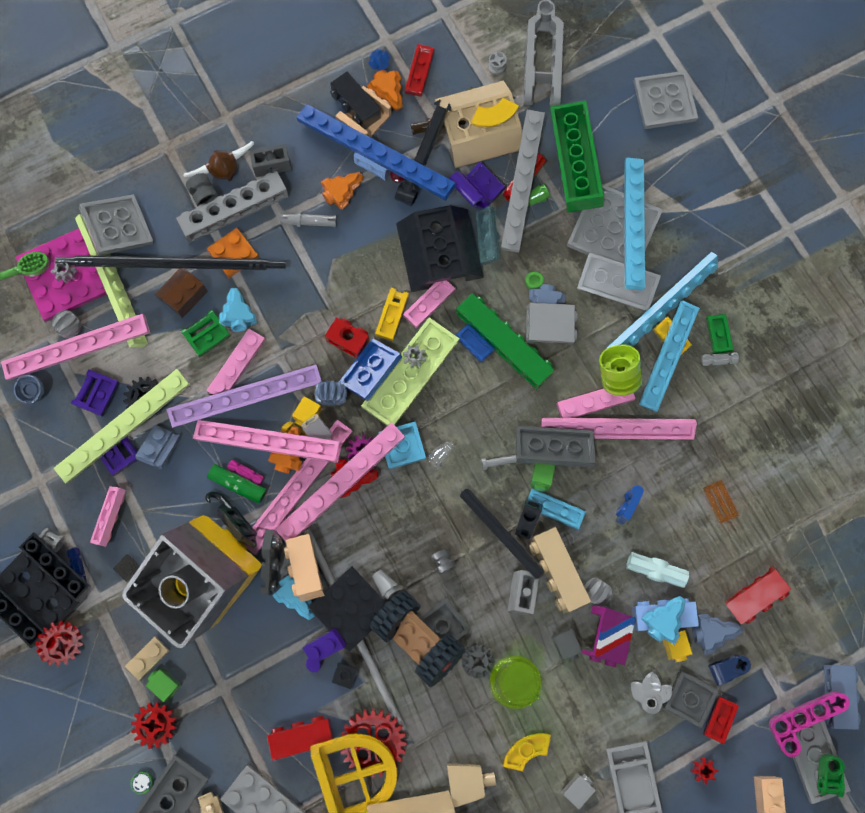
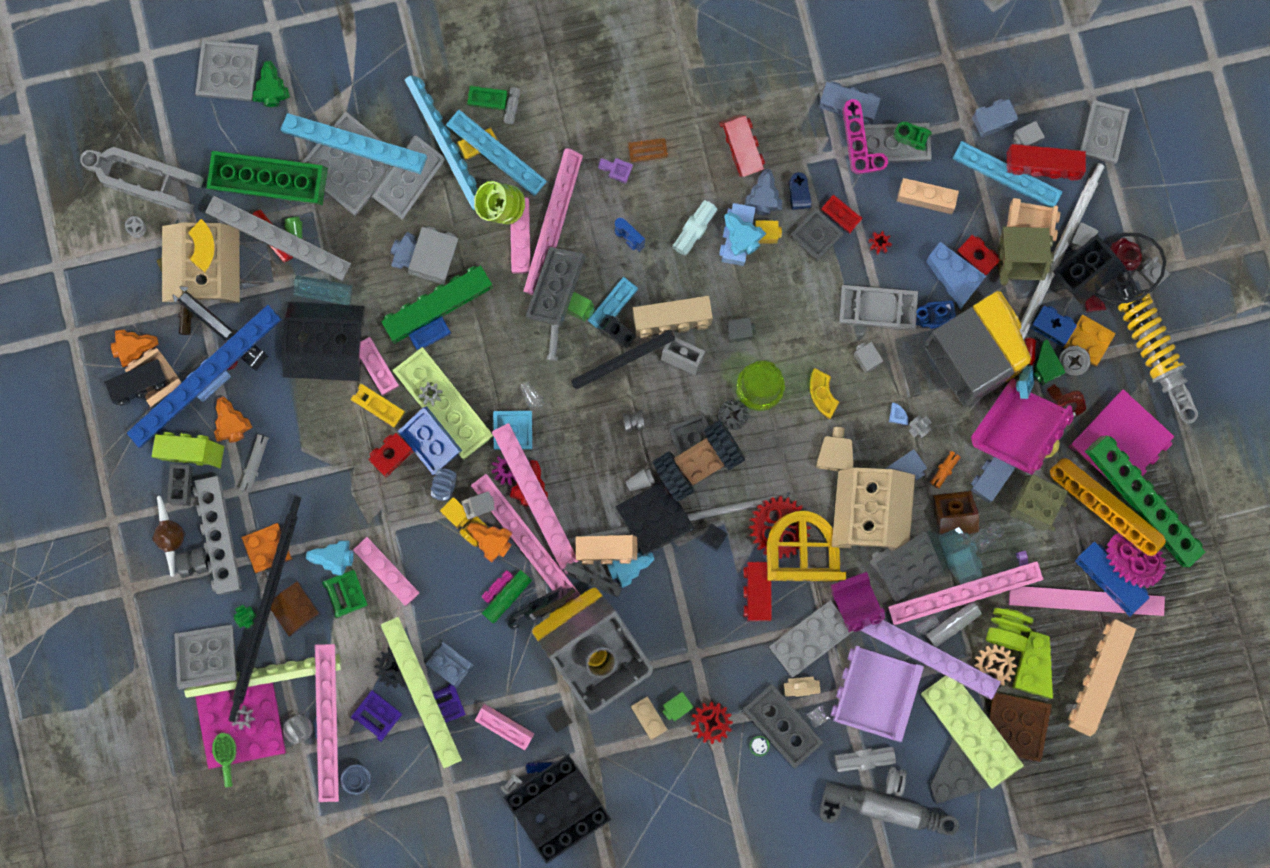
camera: 75 degrees left, 5 degrees up
(49, 643) = (614, 794): red gear -> none
(162, 248) = (245, 616): none -> green gear
(243, 396) = (422, 568): lavender plate -> none
(268, 441) = (475, 555): bright pink plate -> none
(304, 160) = (187, 449): none -> lime wedge
(321, 648) = (683, 551): dark purple hinge -> none
(379, 59) = (97, 346): blue gear -> none
(419, 70) = (118, 308): red tile -> none
(479, 186) = (269, 284): dark purple piece -> none
(534, 280) = (382, 258): bright green tile -> none
(598, 592) = (700, 286): light grey piece -> none
(612, 637) = (744, 286): magenta panel -> none
(650, 690) = (799, 267): light grey plate -> none
(662, 139) = (270, 87): none -> green rock
(691, 478) = (618, 170): none -> medium lavender plate

